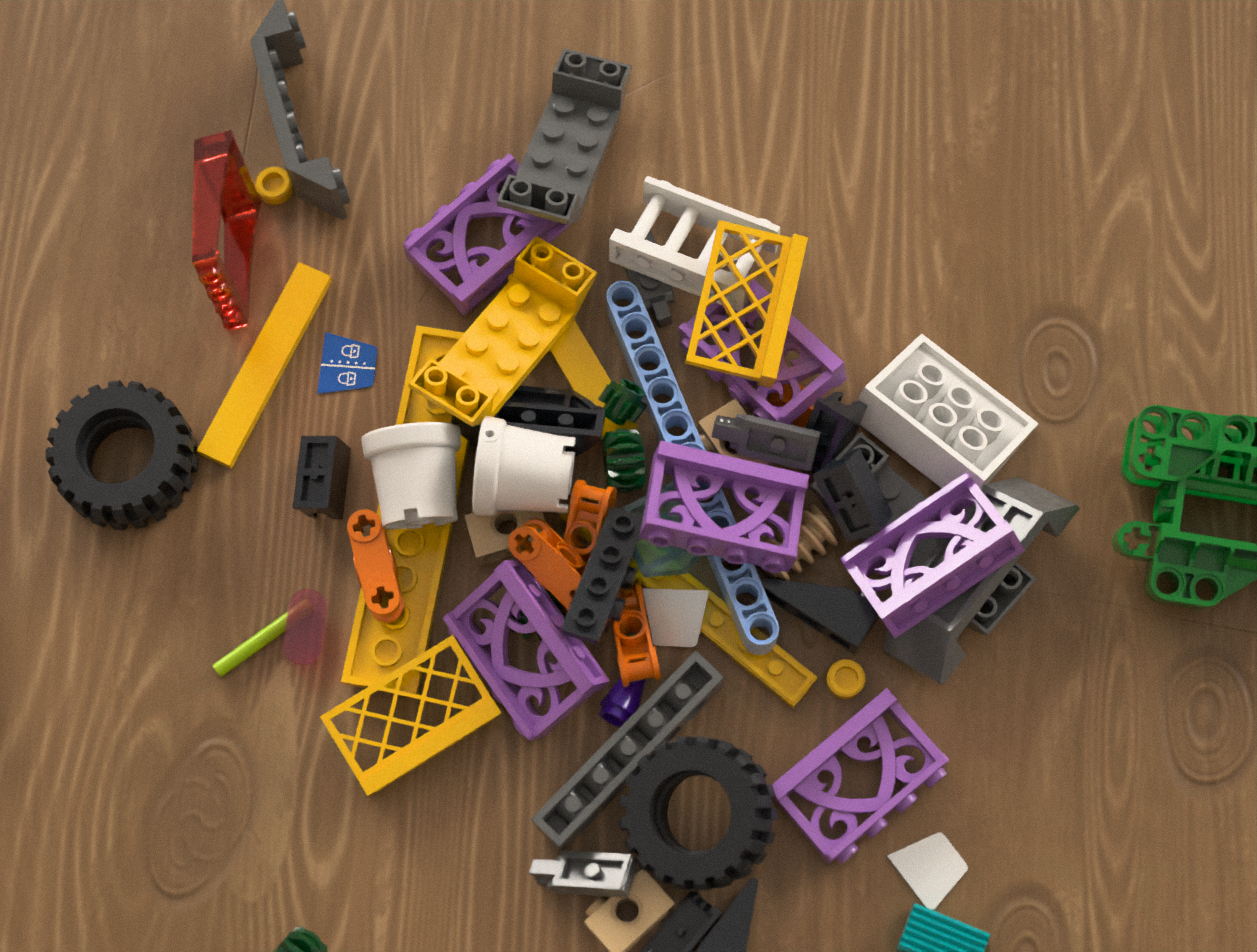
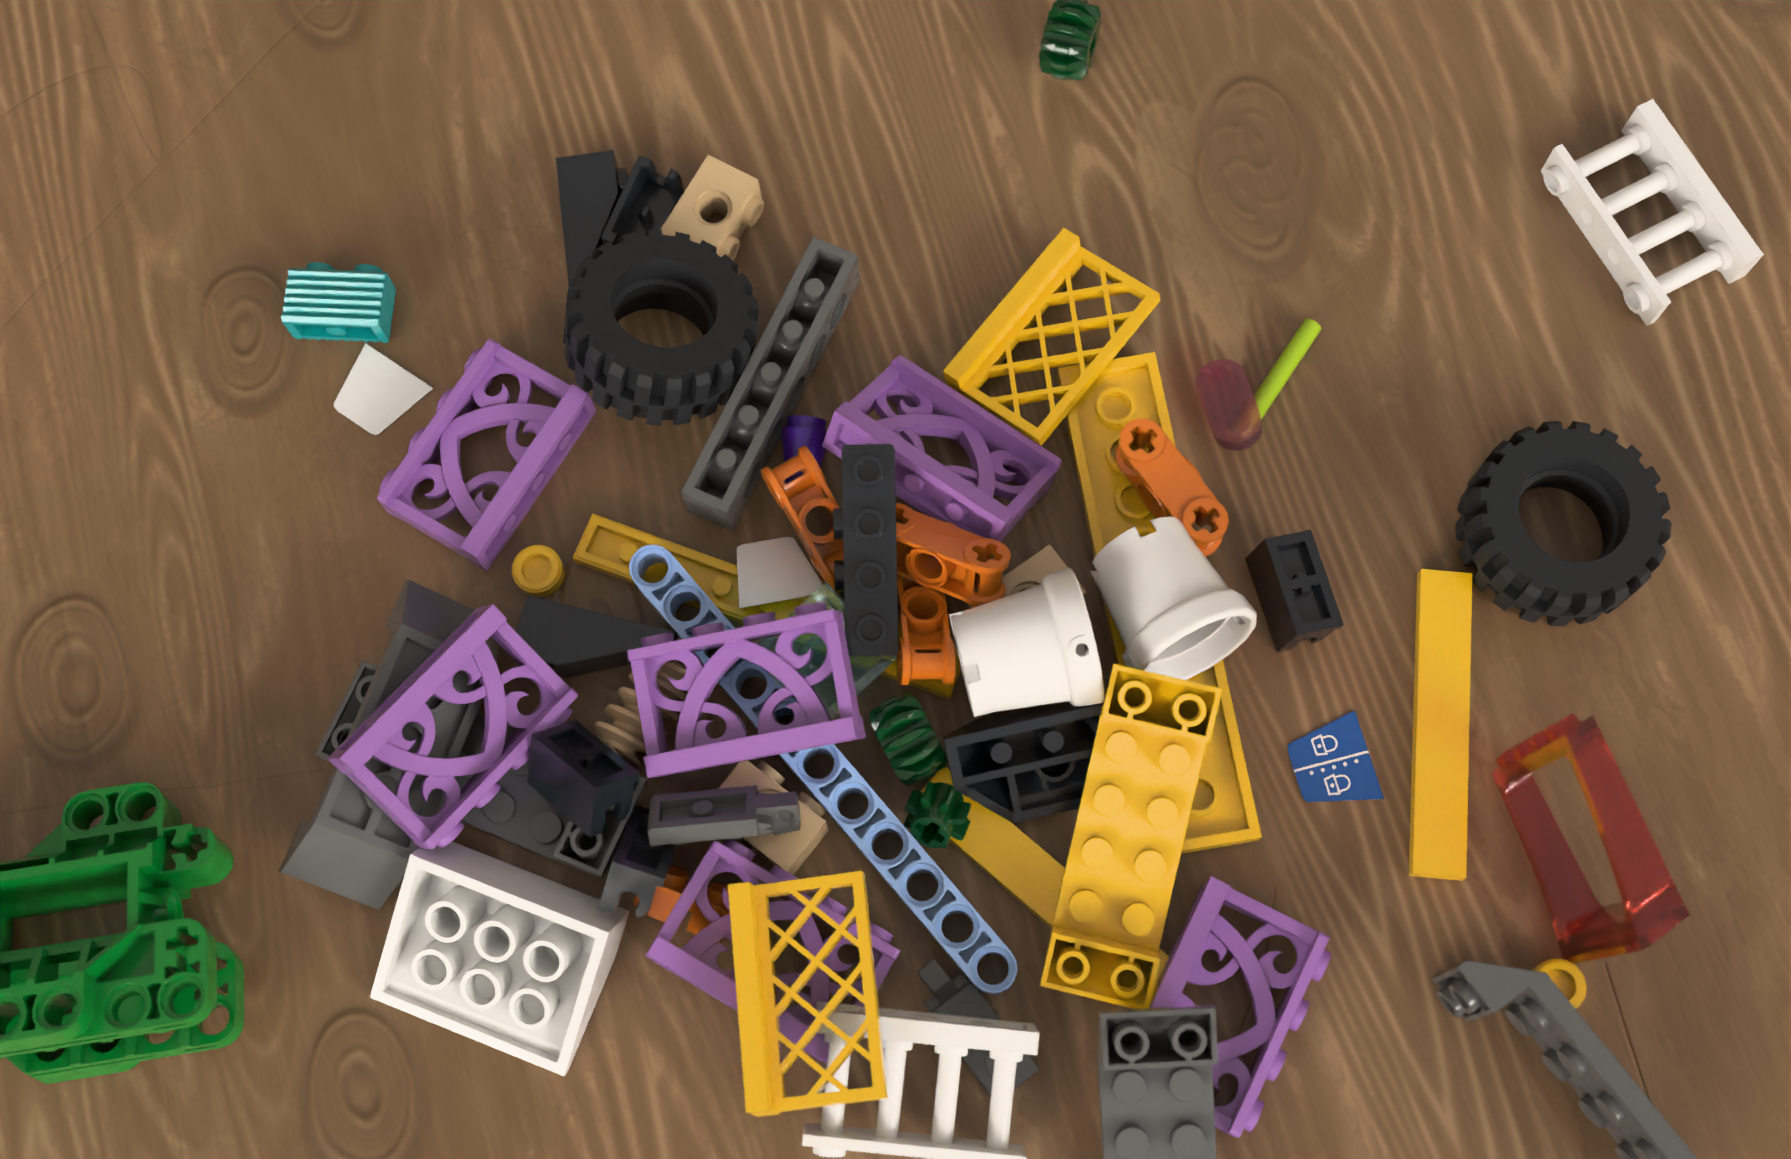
camera: 160 degrees right, 0 degrees up
(587, 873) = (770, 230): hinge -> none

